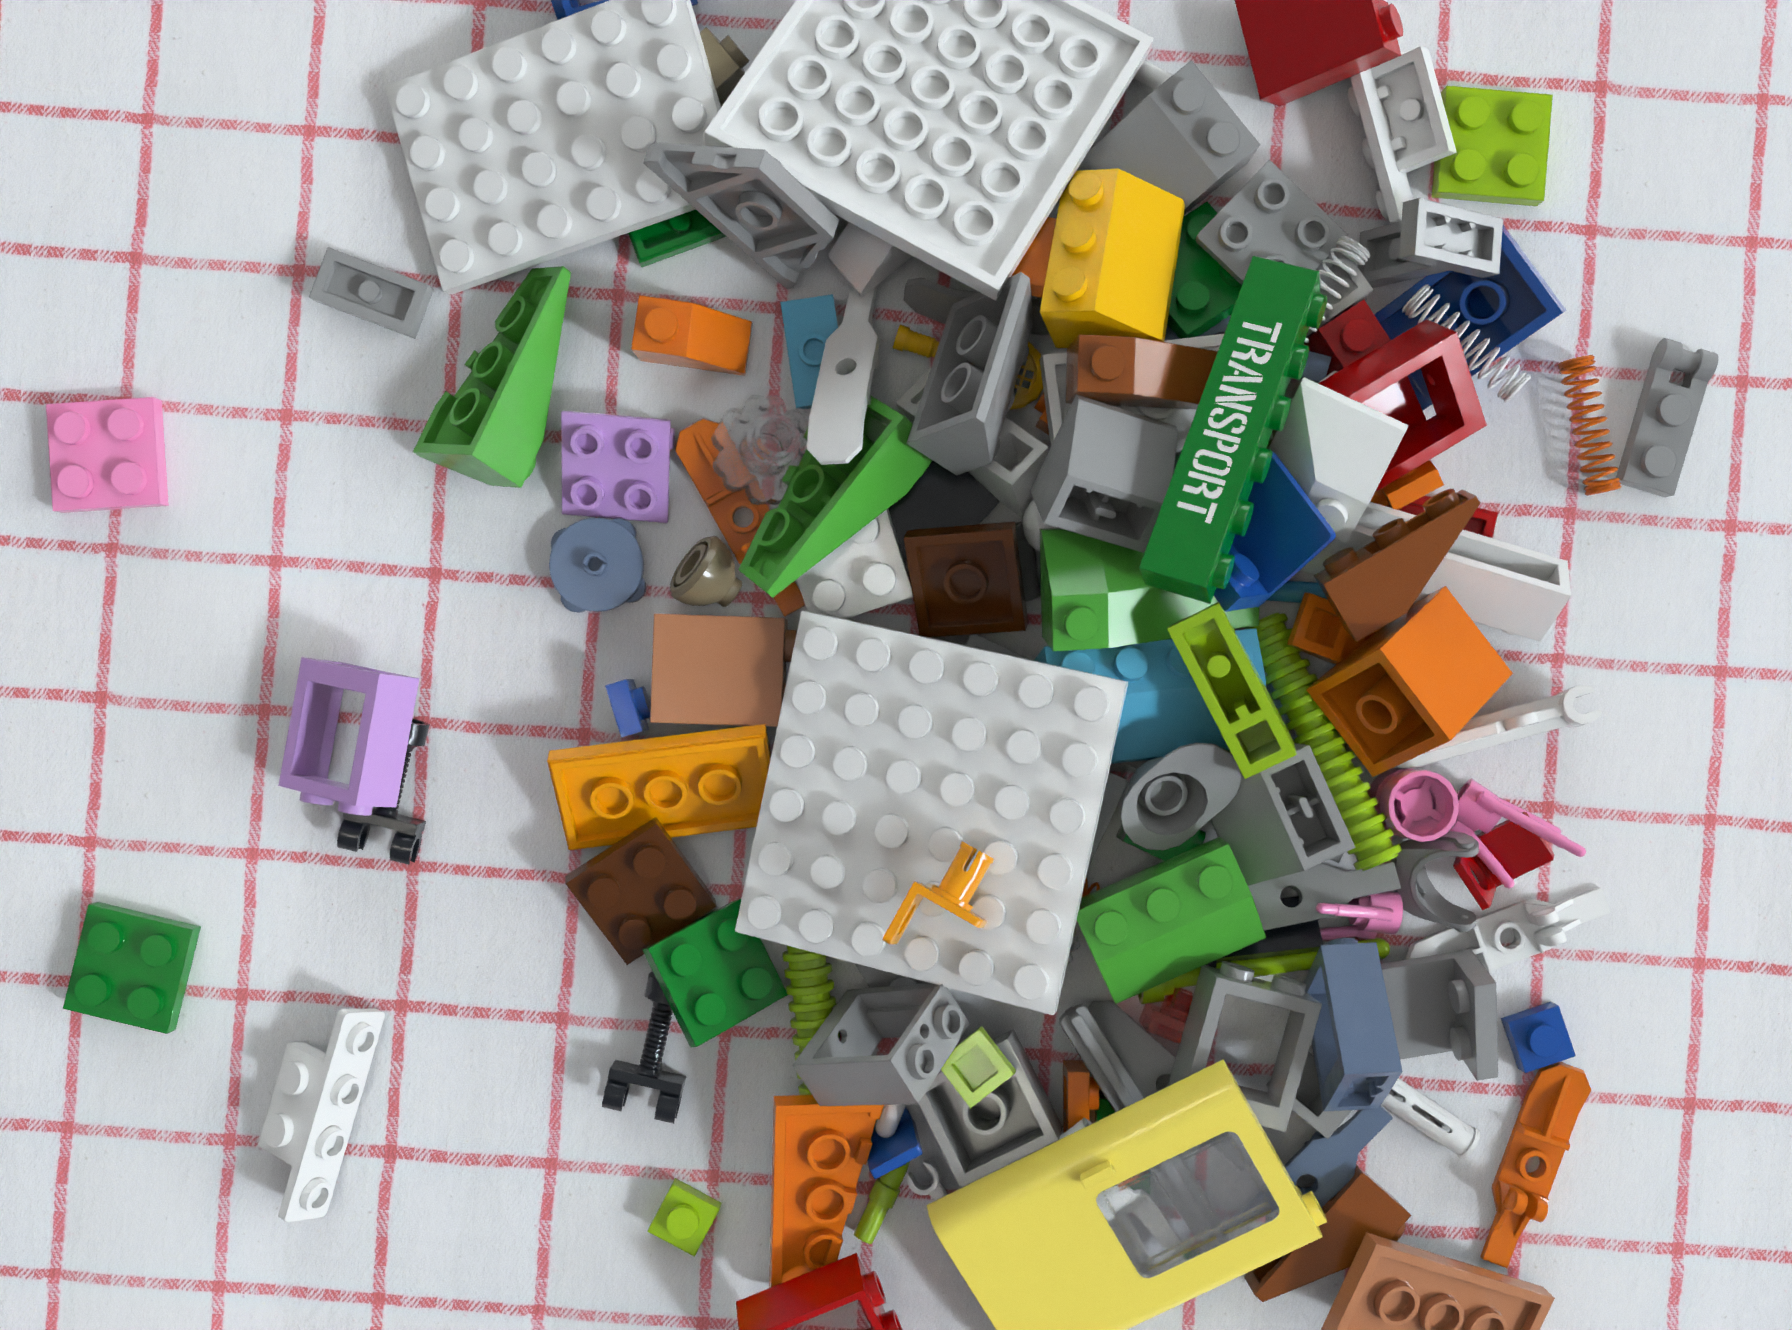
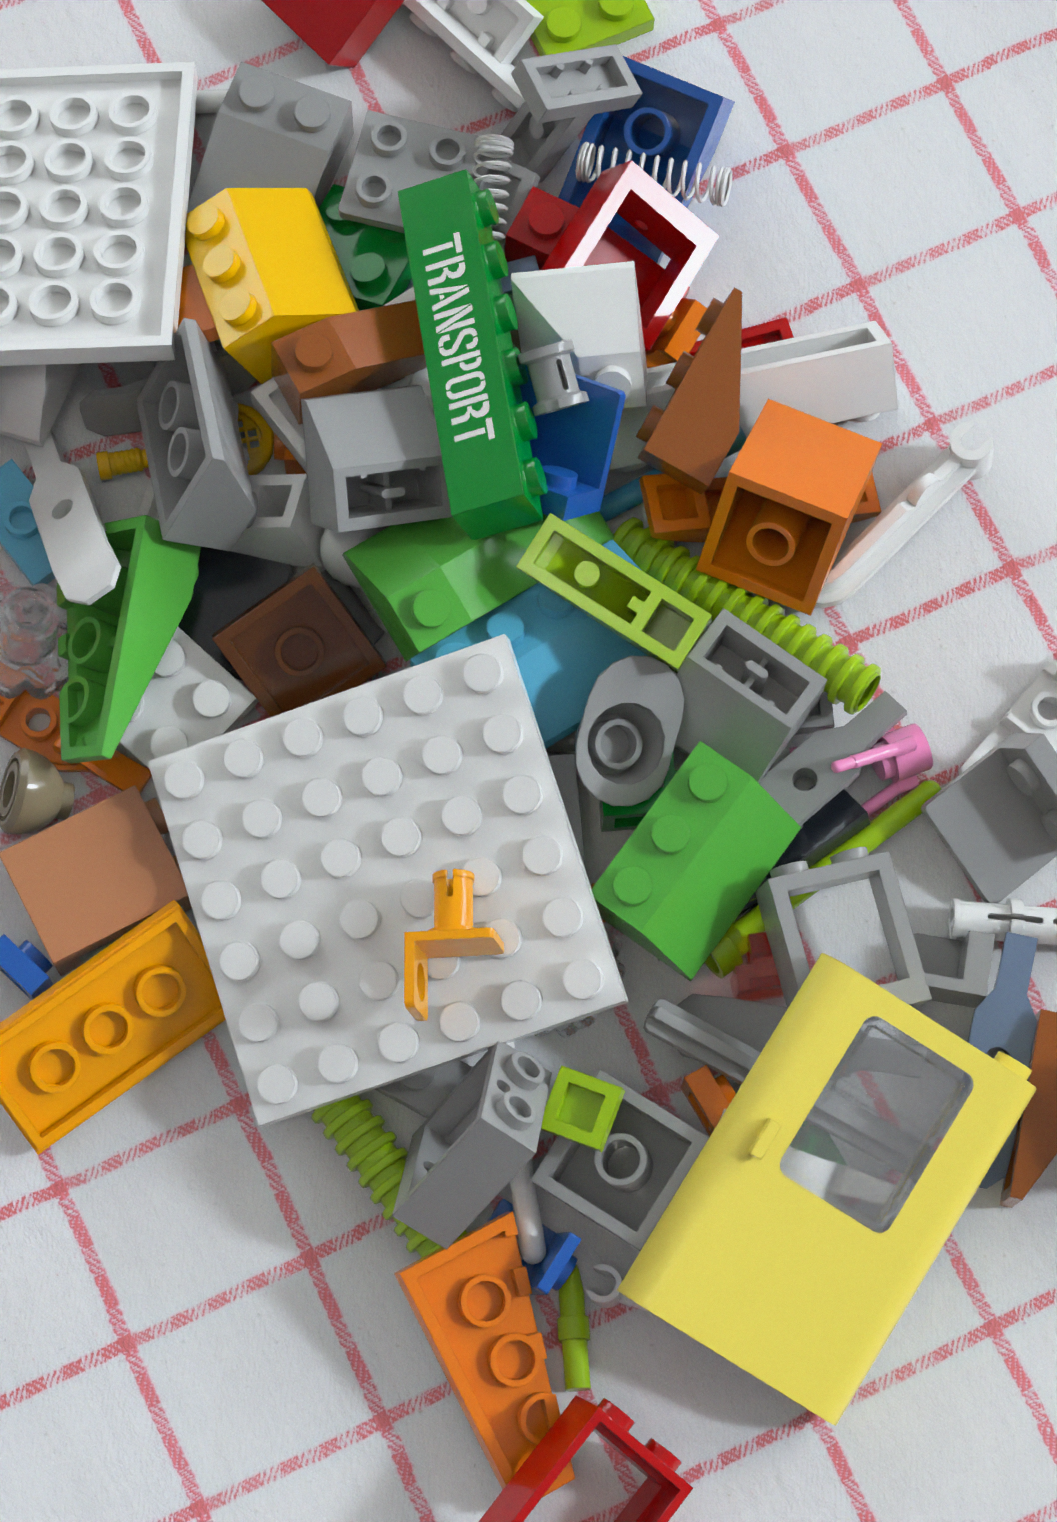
camera: 30 degrees left, 15 degrees down
(640, 890) = (138, 1150): reddish brown plate -> none
(648, 1072) = (223, 1246): black bar -> none
(684, 1217) = (375, 1477): lime plate -> none
(714, 974) = (262, 1190): green plate -> none
(1286, 493) = (553, 377): none -> light grey bush
(1354, 1030) = (937, 863): sand blue window -> none
(1415, 803) = (875, 613): bright pink wheel -> none
(1416, 889) = (930, 714): light grey helmet -> none
(1484, 809) = (940, 598): bright pink plant -> none
(1514, 848) = (991, 630): red bracket -> none
(1577, 366) = (777, 147): orange piece -> none
(1665, 418) = (892, 152): light grey plate -> none

